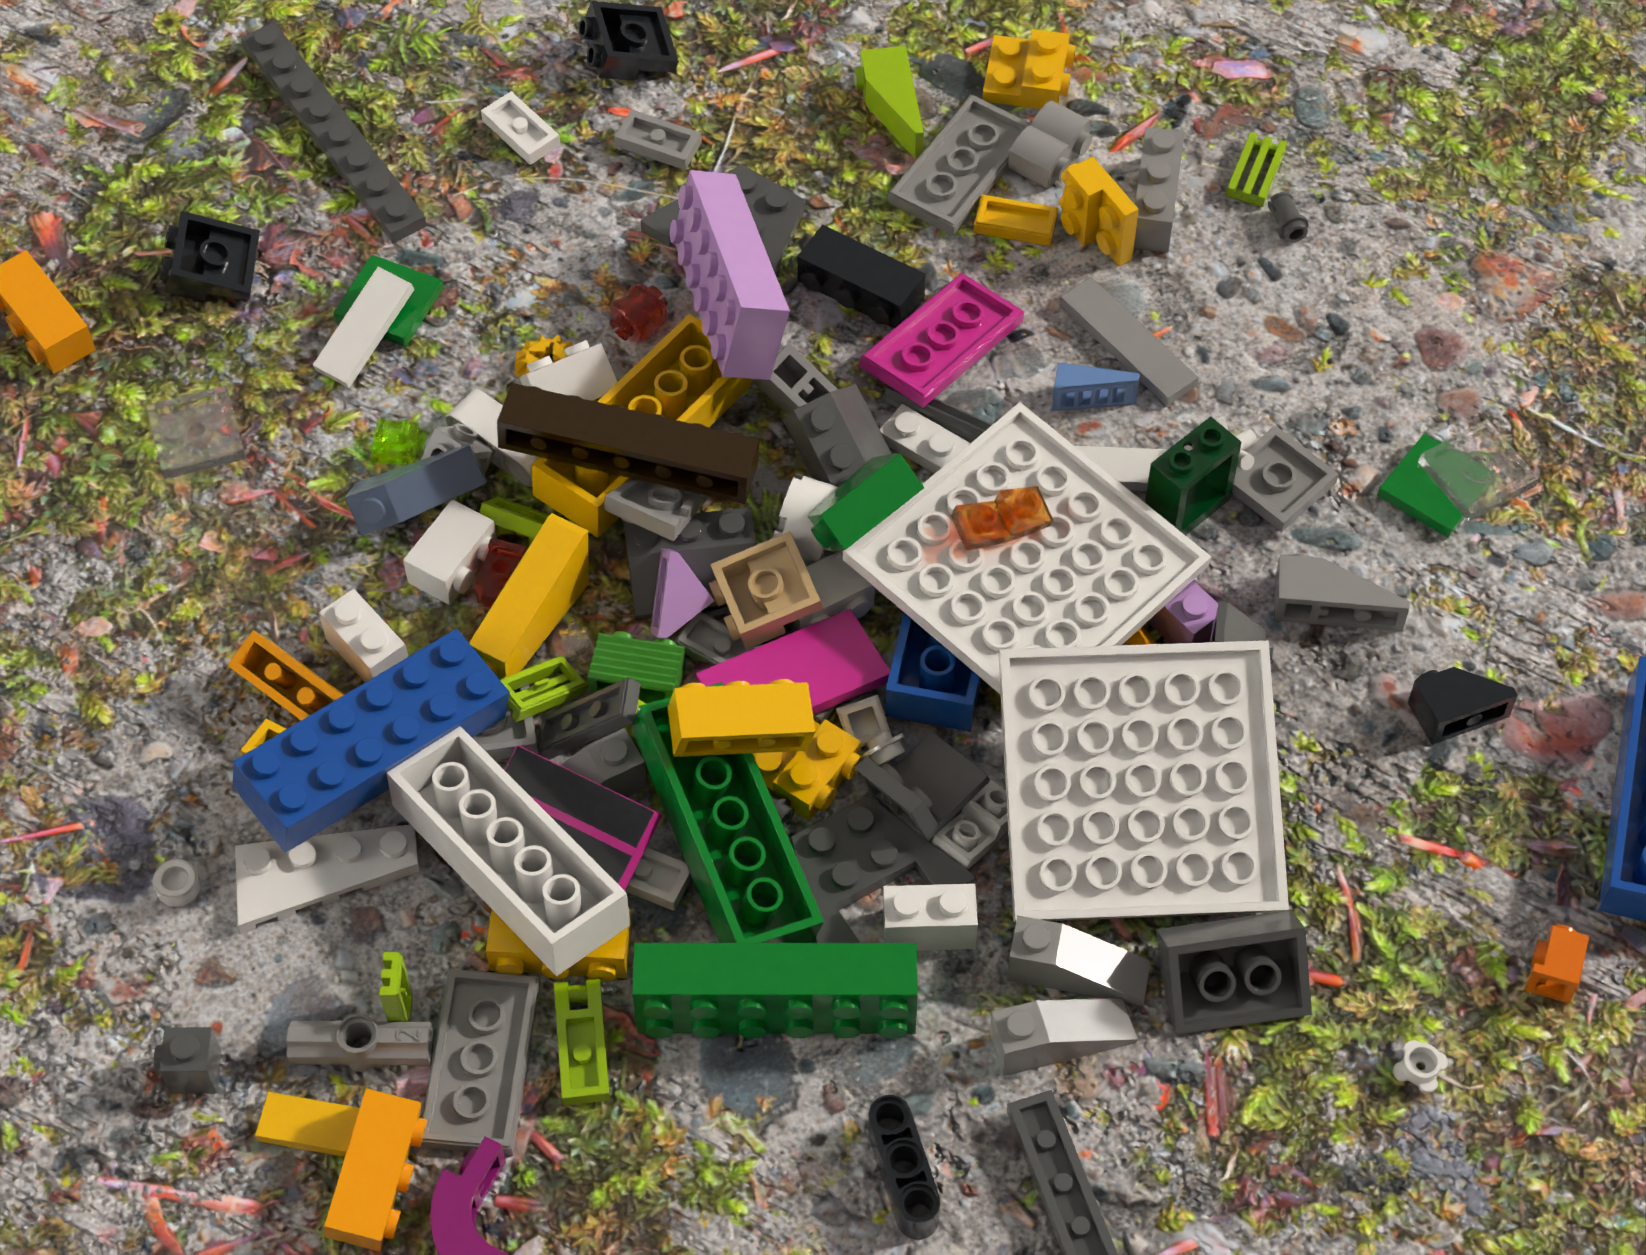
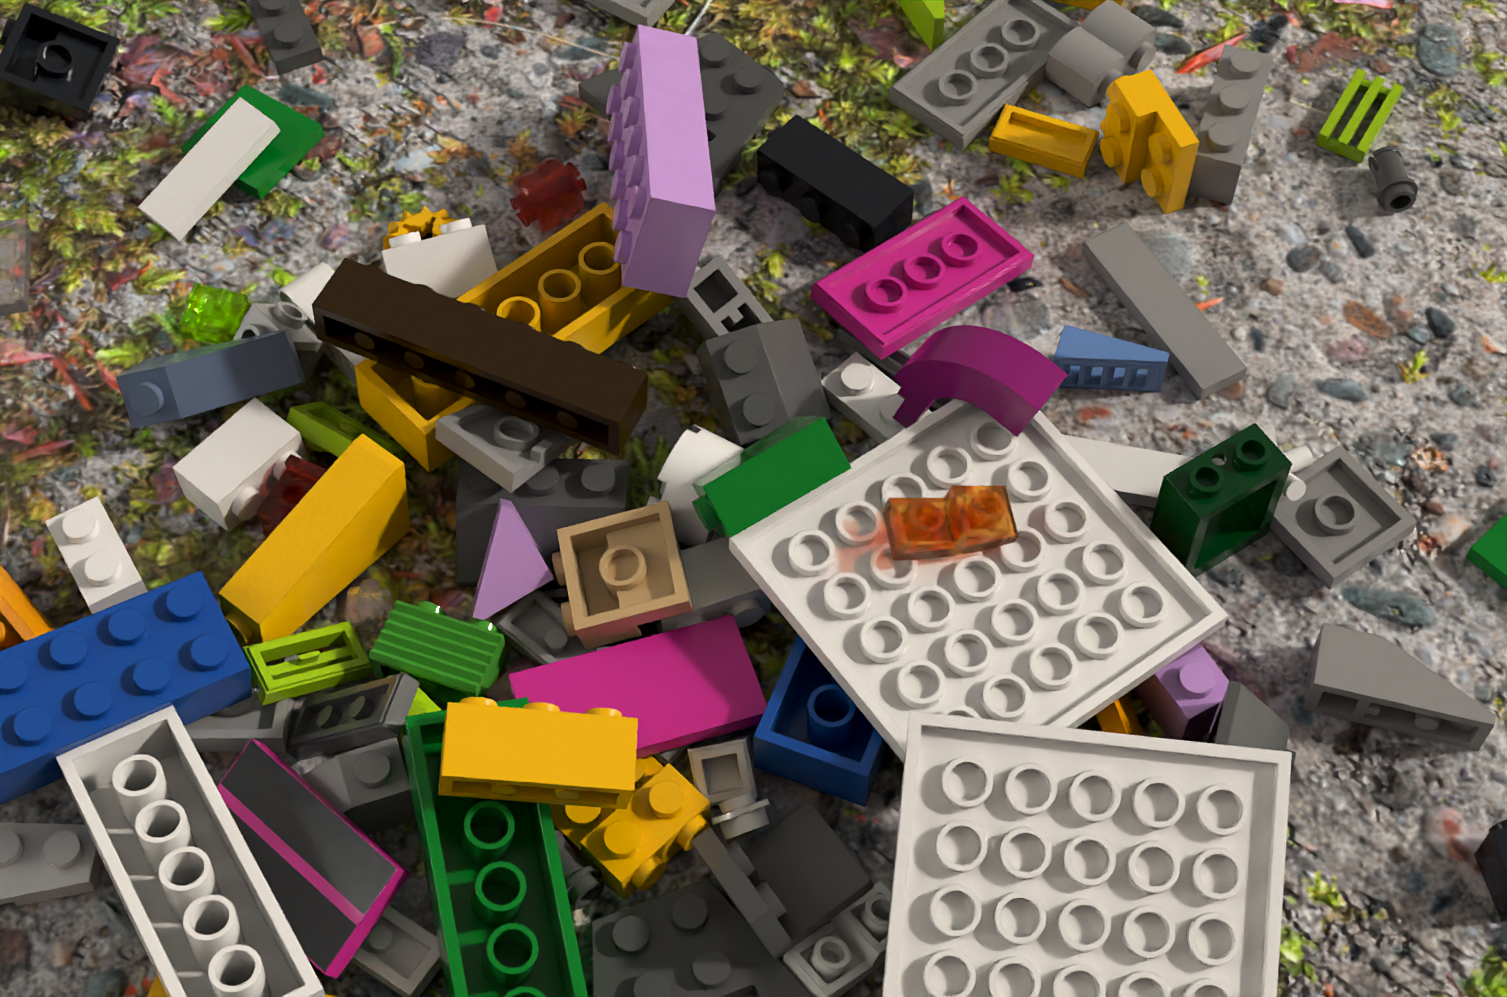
camera: 10 degrees right, 0 degrees up
(1003, 403) = (979, 368): none -> magenta arch

